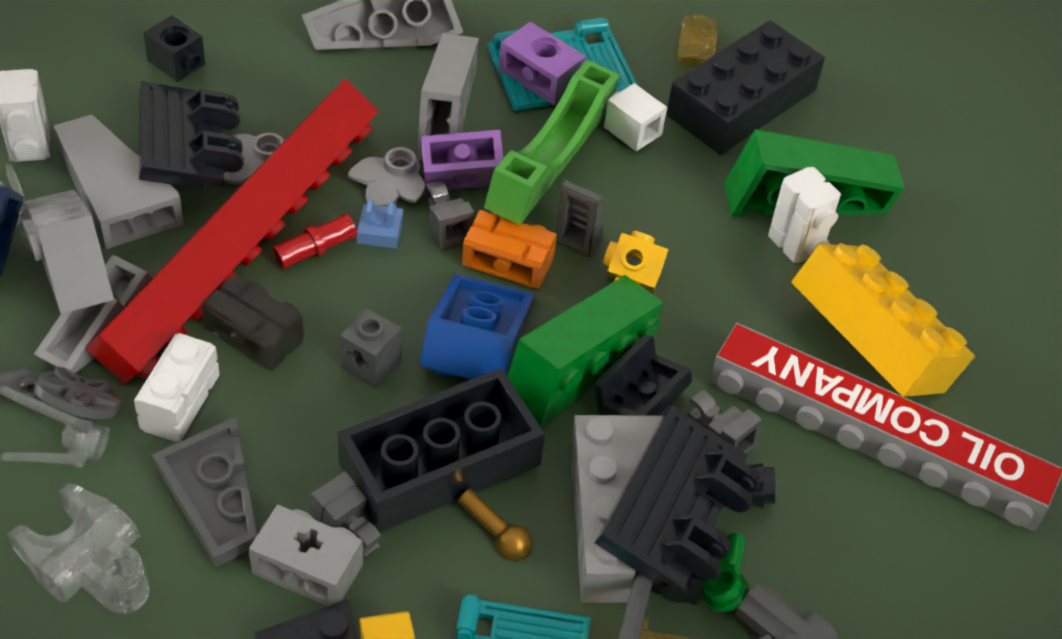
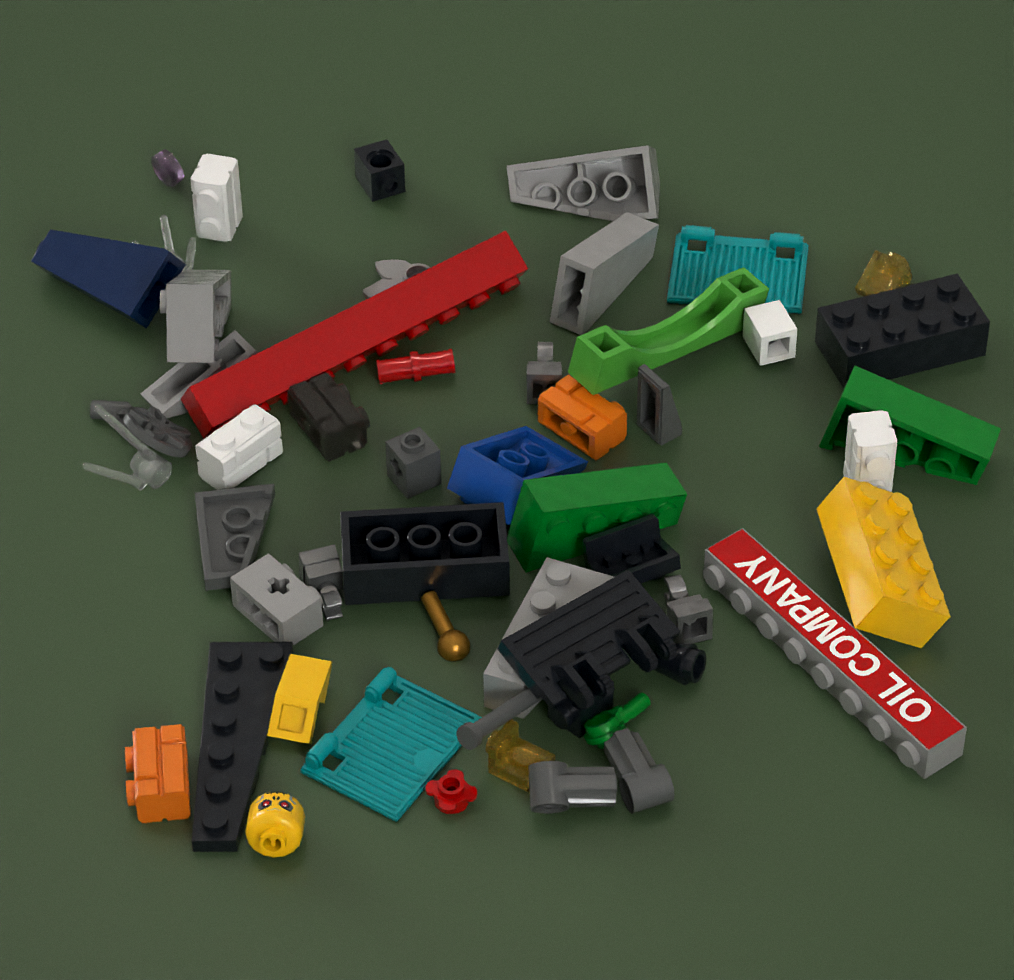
camera: 30 degrees right, 5 degrees down
(88, 554) = (112, 550): clear piece -> none
(110, 185) = (270, 277): light grey slope -> none
(184, 137) = (346, 248): black hinge -> none
(380, 225) = (482, 368): medium blue tile -> none
(390, 177) = (513, 330): light grey plate -> none
(462, 158) = (565, 320): medium lavender brick -> none
(539, 61) = (706, 254): medium lavender brick -> none
(642, 248) = (688, 455): yellow brick -> none

